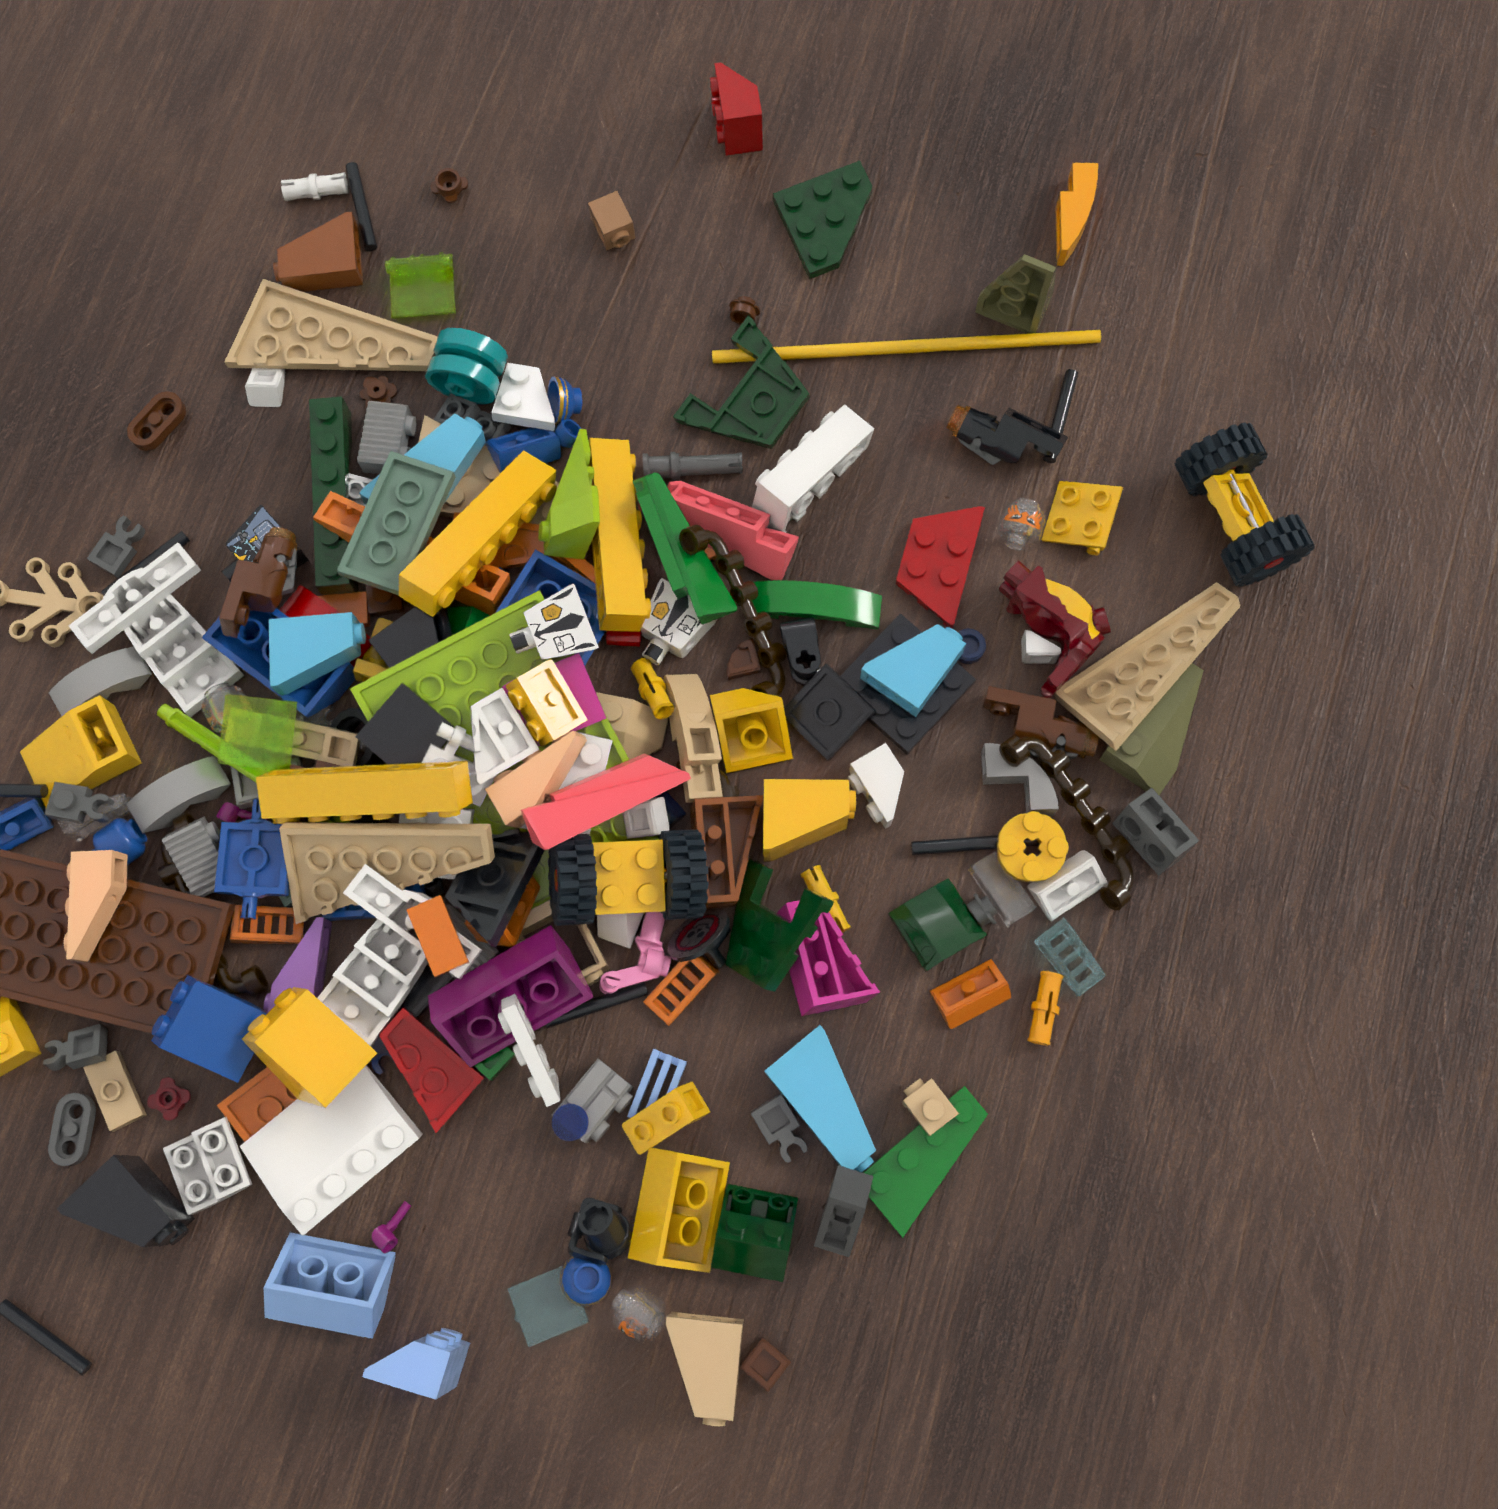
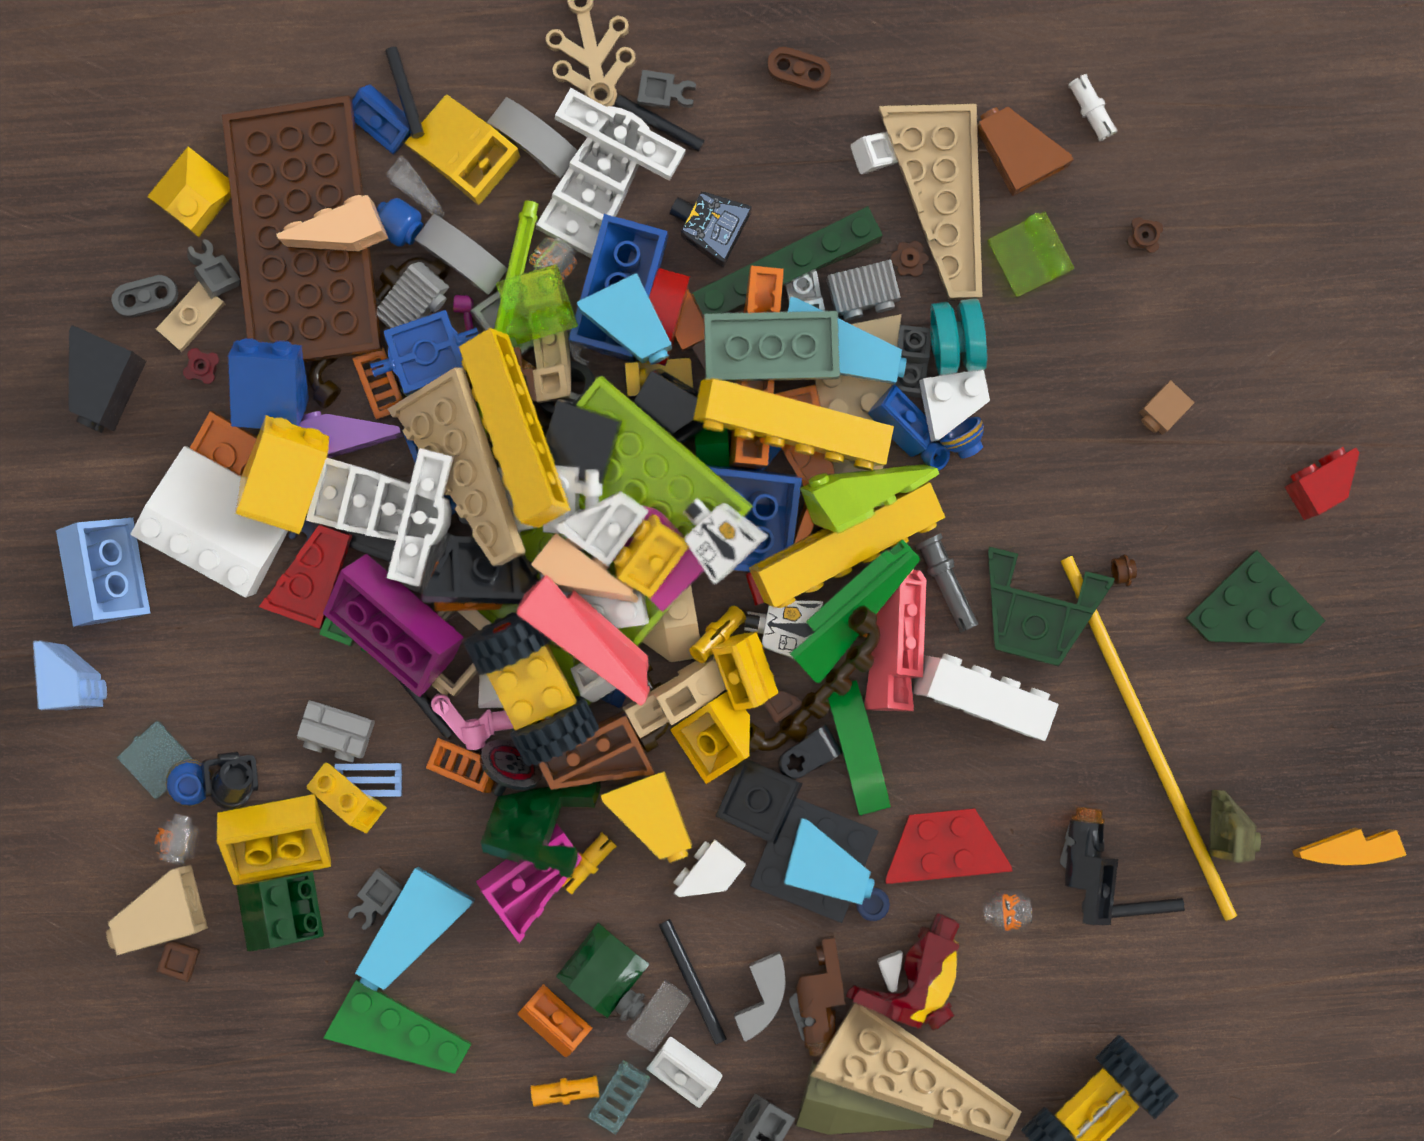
camera: 65 degrees right, 10 degrees up
(75, 802) = (414, 169): dark grey plate -> none
(207, 1166) = (158, 425): white slope -> none
(261, 582) = (672, 249): reddish brown plate -> none
(361, 206) = (1090, 160): black bar -> none
(383, 1235) = (158, 598): magenta hand -> none
(437, 936) = (414, 546): orange tile -> none
(543, 1079) = (350, 664): white wing -> none
(570, 1122) = (306, 721): clear blue plate -> none
(697, 671) = (745, 671): none -> yellow brick
(843, 1211) = (322, 981): dark grey brick -> none
(928, 1105) = (440, 1020): tan bracket -> none
(1011, 844) = (721, 1024): yellow plate -> none
(1016, 751) = (749, 1075): dark brown bar -> none
(1082, 515) = (1039, 964): yellow hinge -> none

